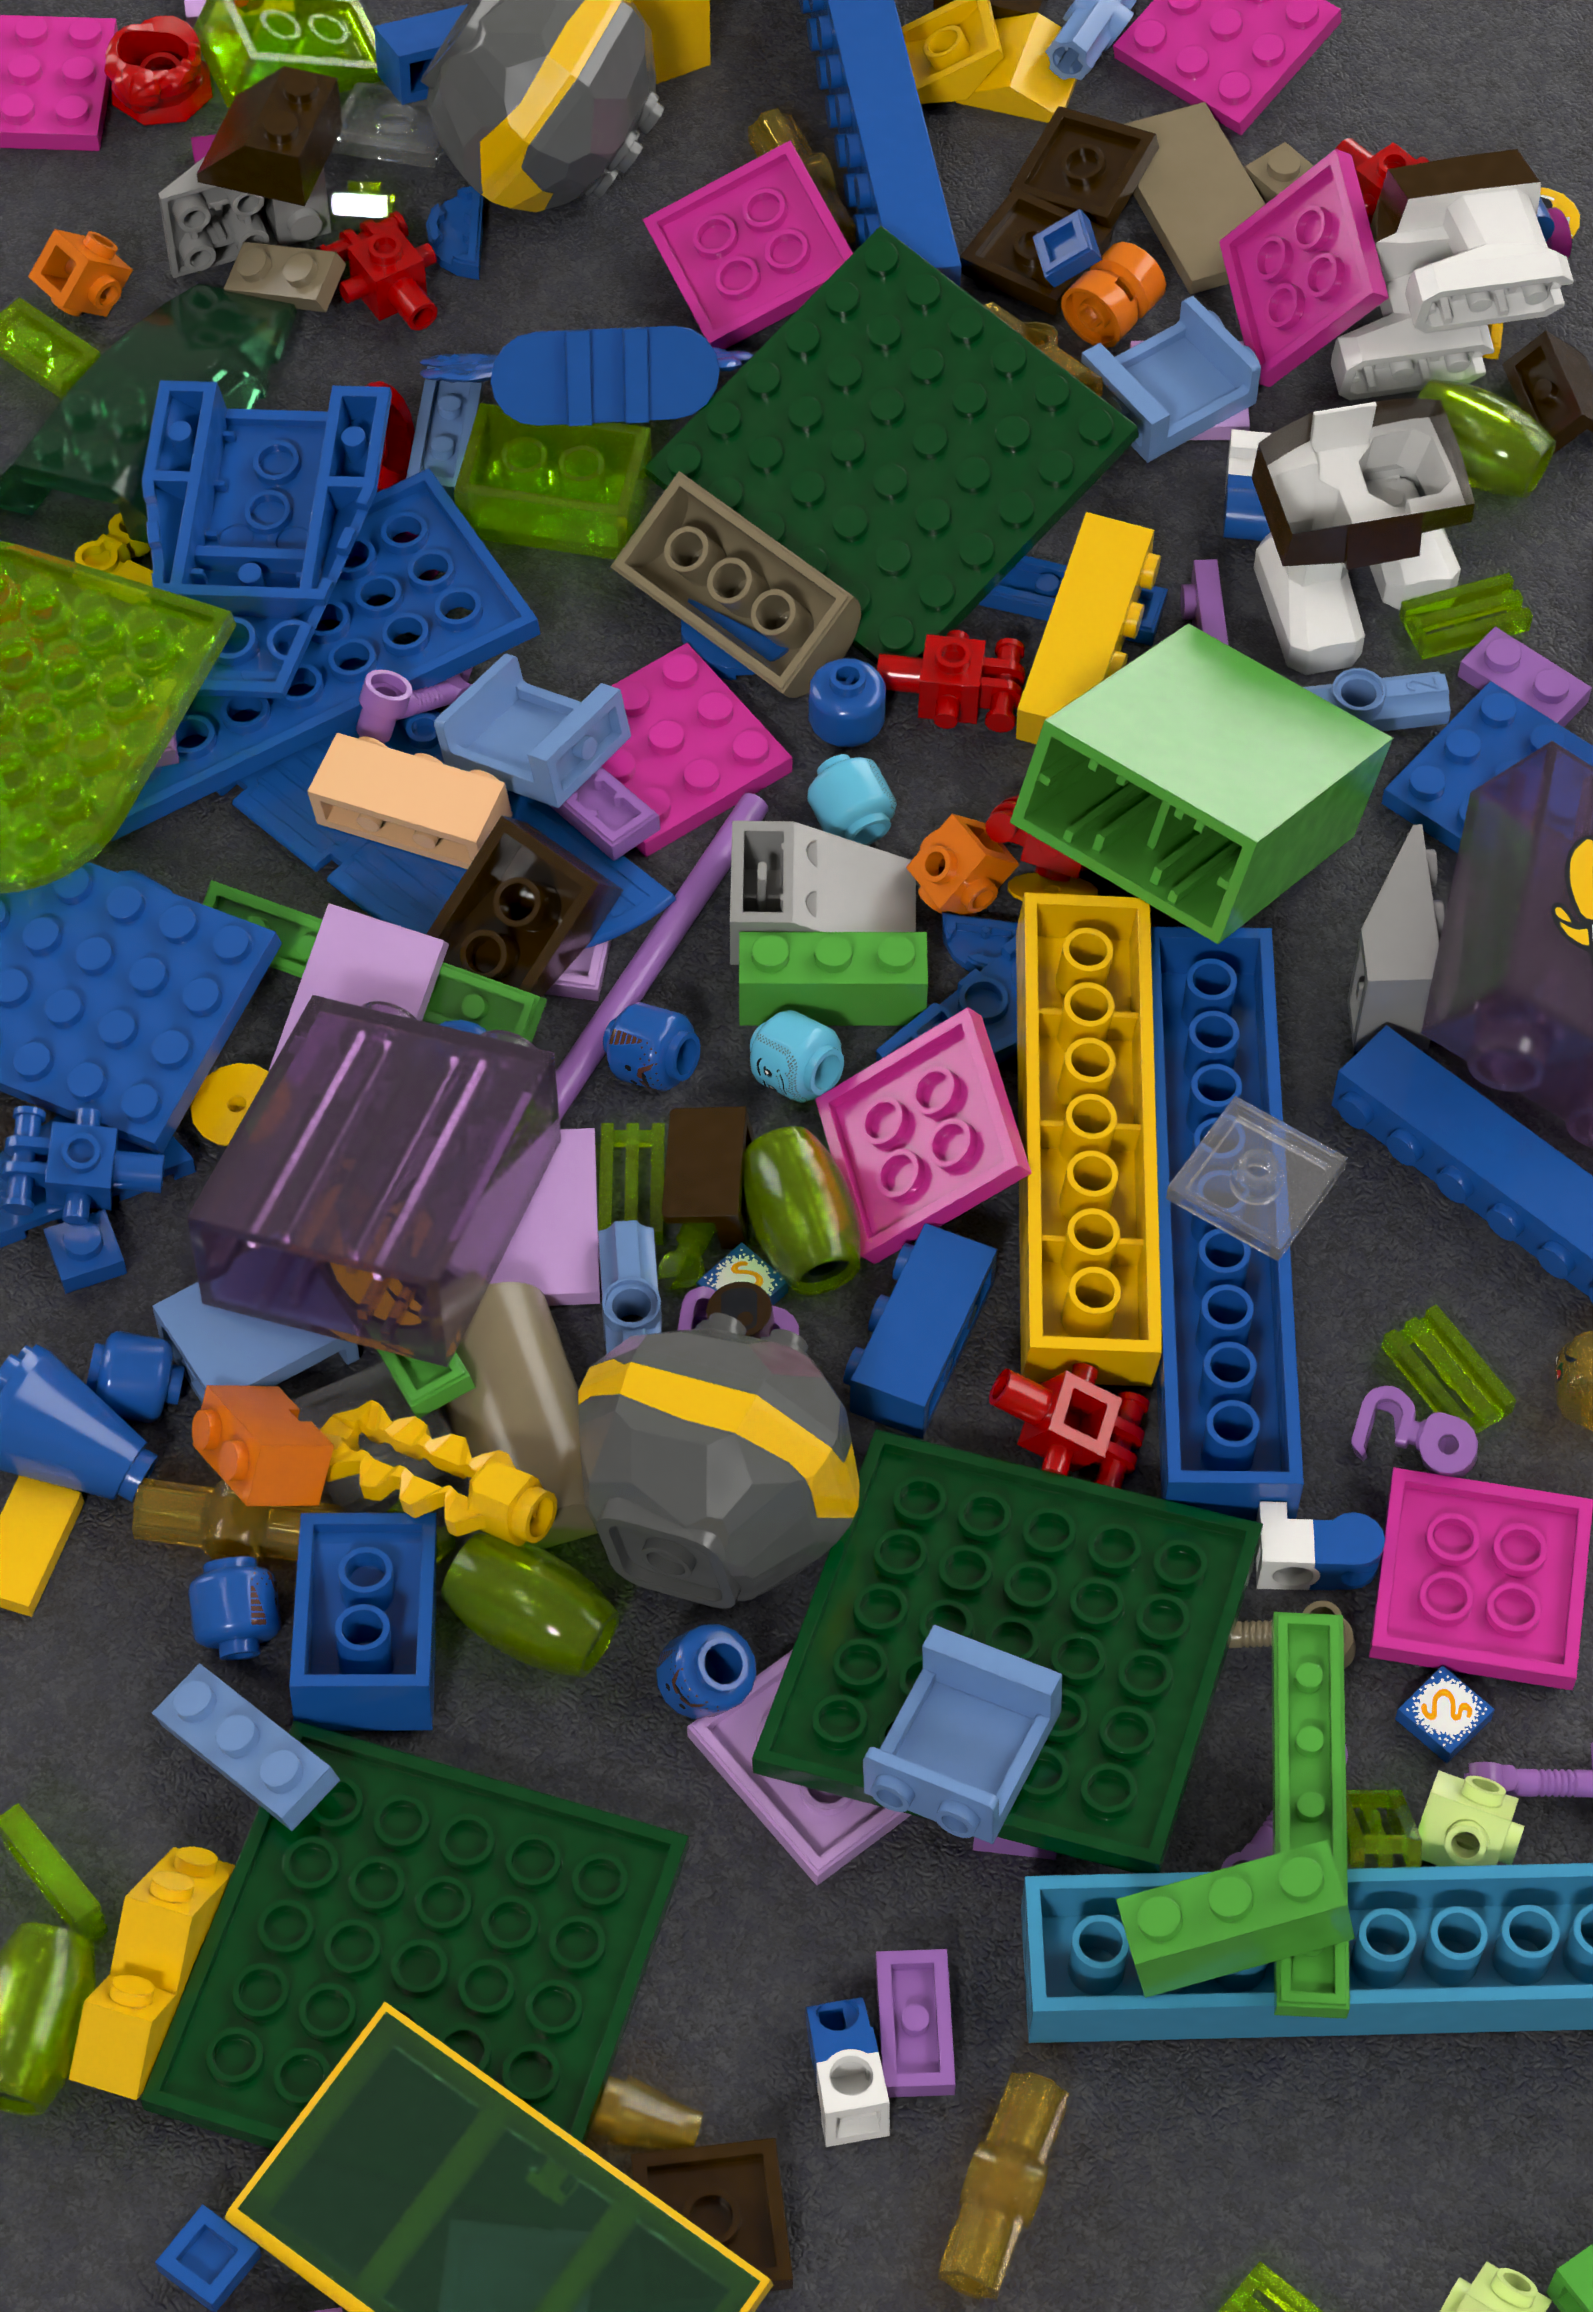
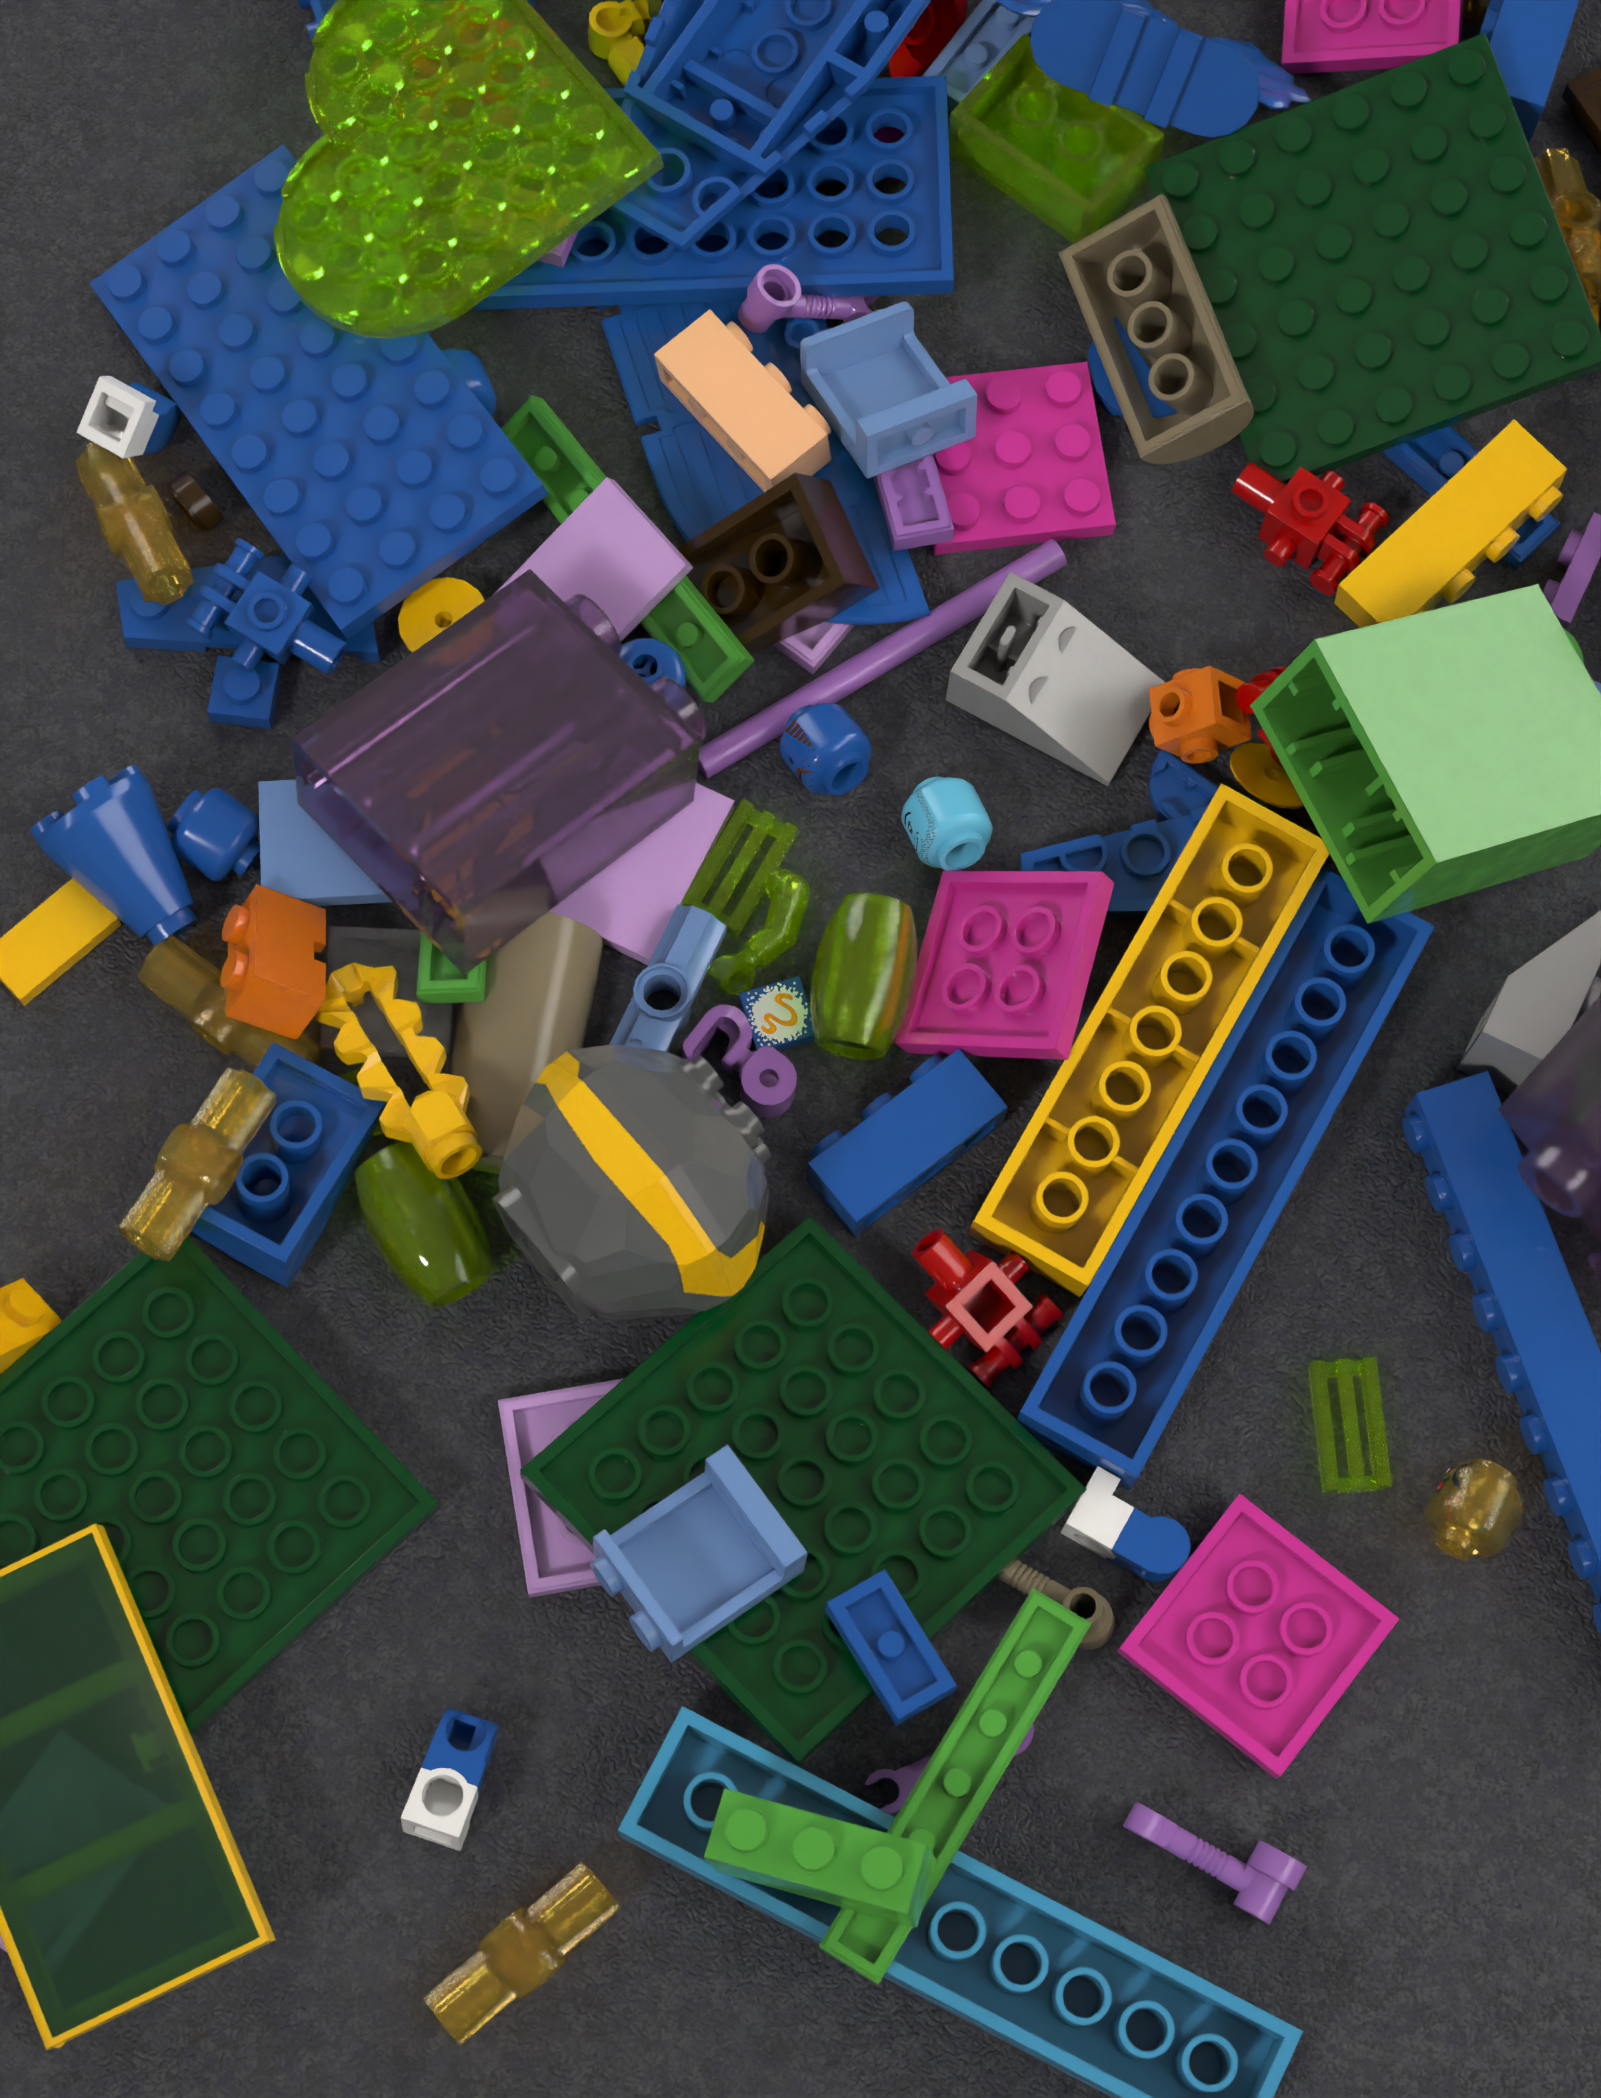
camera: 25 degrees right, 15 degrees up
(234, 1607) = (176, 1086): blue head -> none
(246, 1747) = (108, 1184): medium blue plate -> none
(301, 1636) = (198, 1164): none -> clear yellow piece
(644, 2117) = (265, 1728): clear yellow cone -> none
(706, 1671) = (550, 1377): blue head -> none
(708, 1170) = (802, 894): dark brown panel -> none
(728, 2194) = (285, 1840): dark brown plate -> none
(745, 1303) = (747, 1052): dark brown tile -> none
(833, 977) = (1021, 763): bright green brick -> none
(847, 702) = (1192, 496): blue head -> none
(852, 799) = (1141, 596): medium azure head -> none
(915, 2022) = (532, 1769): medium lavender plate -> none
(1181, 1724) = (890, 1647): none -> blue plate
(1256, 1178) = (1269, 1167): clear plate -> none
(1405, 1838) = (1002, 1847): clear neon green tile -> none
(1444, 1441) = (1296, 1495): medium lavender leg -> none
(1444, 1714) = (1150, 1740): tile -> none
(1469, 1823) = (1098, 1861): yellowish green brick -> none

